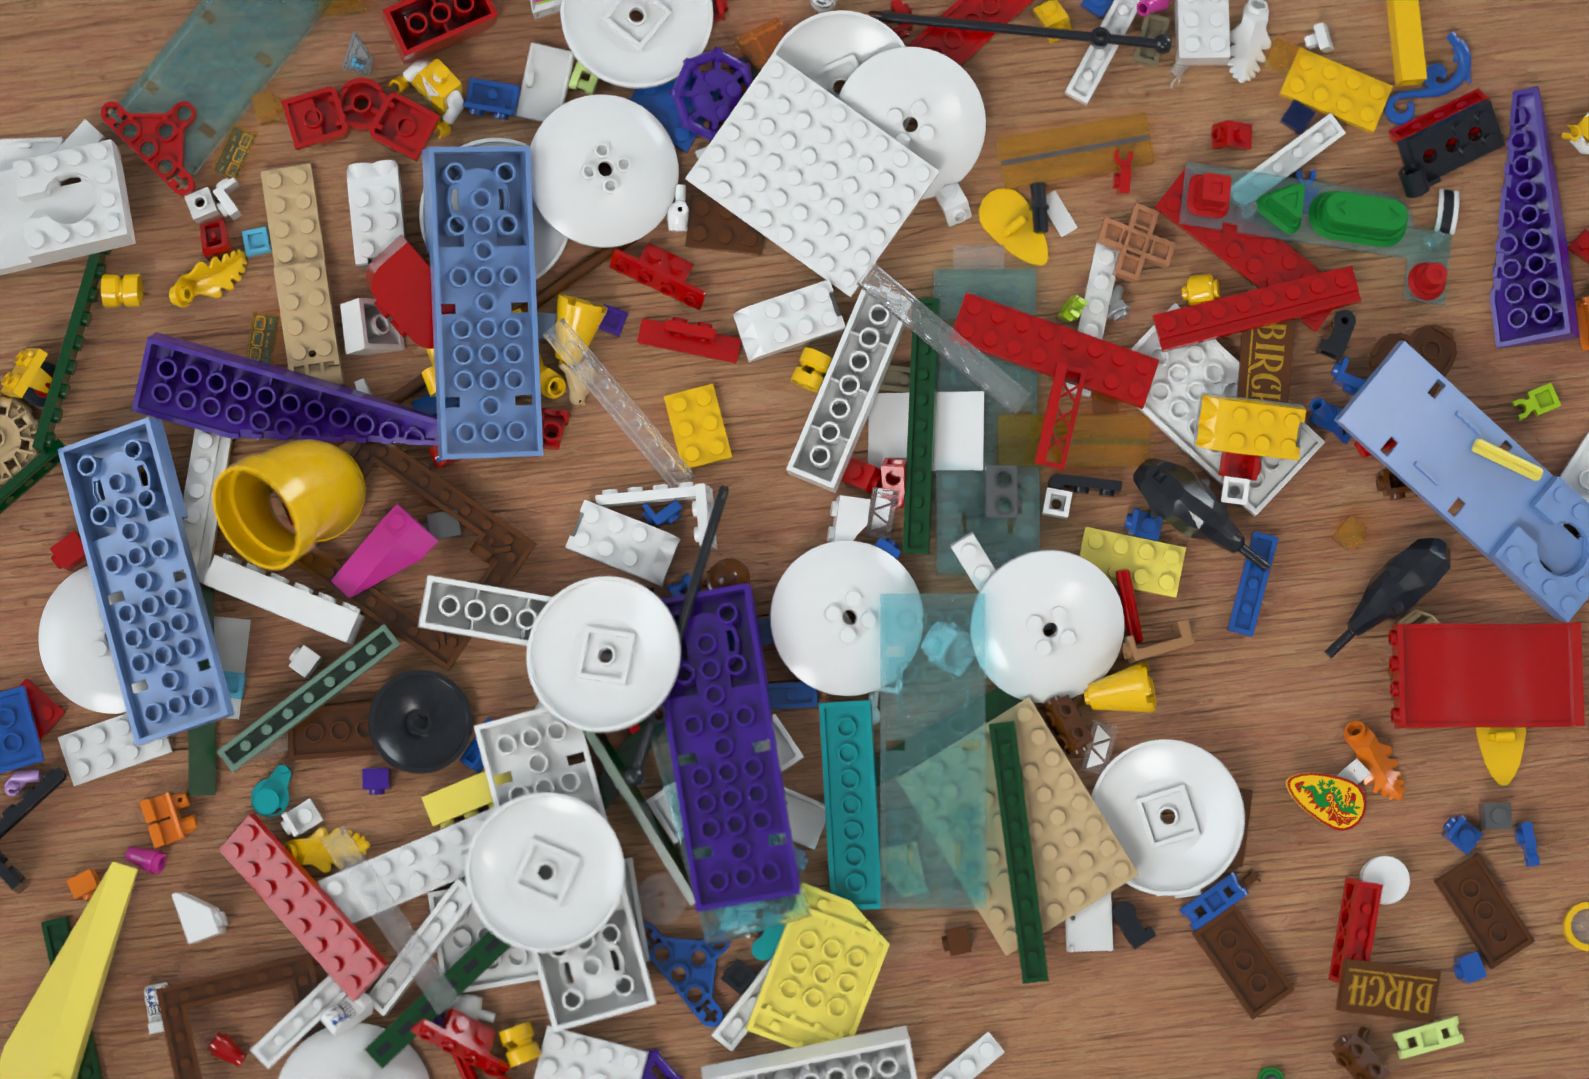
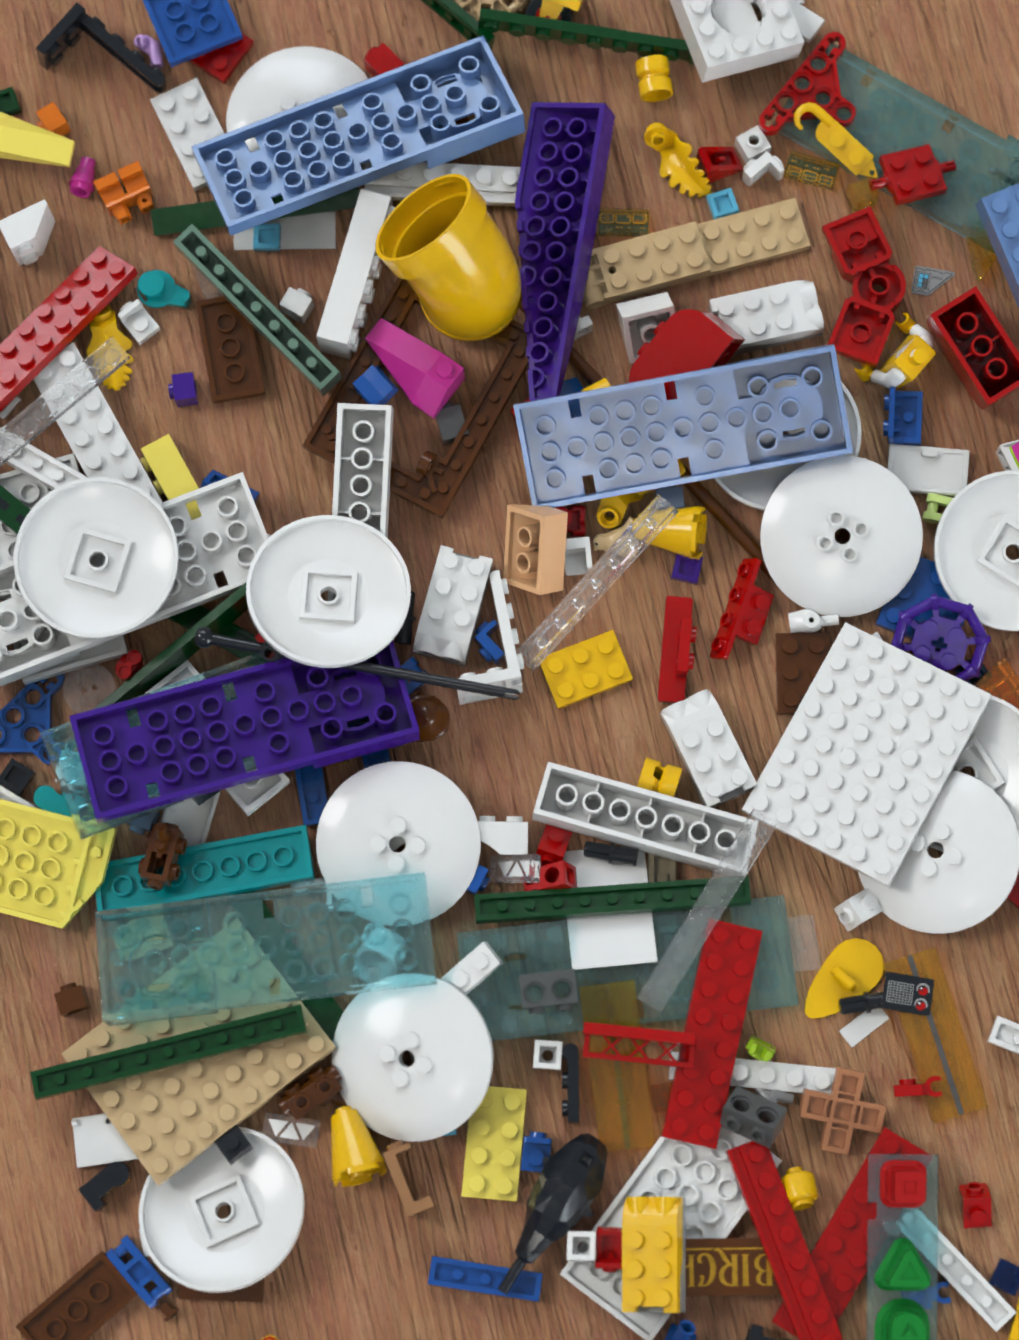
camera: 85 degrees right, 5 degrees down
(212, 121) = (838, 141): none -> yellow plate
(255, 56) = (912, 174): none -> red plate
(401, 593) = (375, 386): none -> blue piece
(420, 722) = (246, 423): black dish -> none
(579, 458) = (535, 548): none -> light nougat slope
(589, 421) = (577, 556): none -> white panel
(645, 856) = (129, 665): none -> red plate
(826, 838) = (162, 851): none -> reddish brown brick
(875, 423) = (611, 853): none -> black axle
(1036, 169) = (907, 993): none -> black sticker
(1109, 800) = (233, 1144): none -> black plate
(1129, 605) = (445, 1145): red axle -> none
(1134, 322) = (753, 1117): none -> dark grey brick

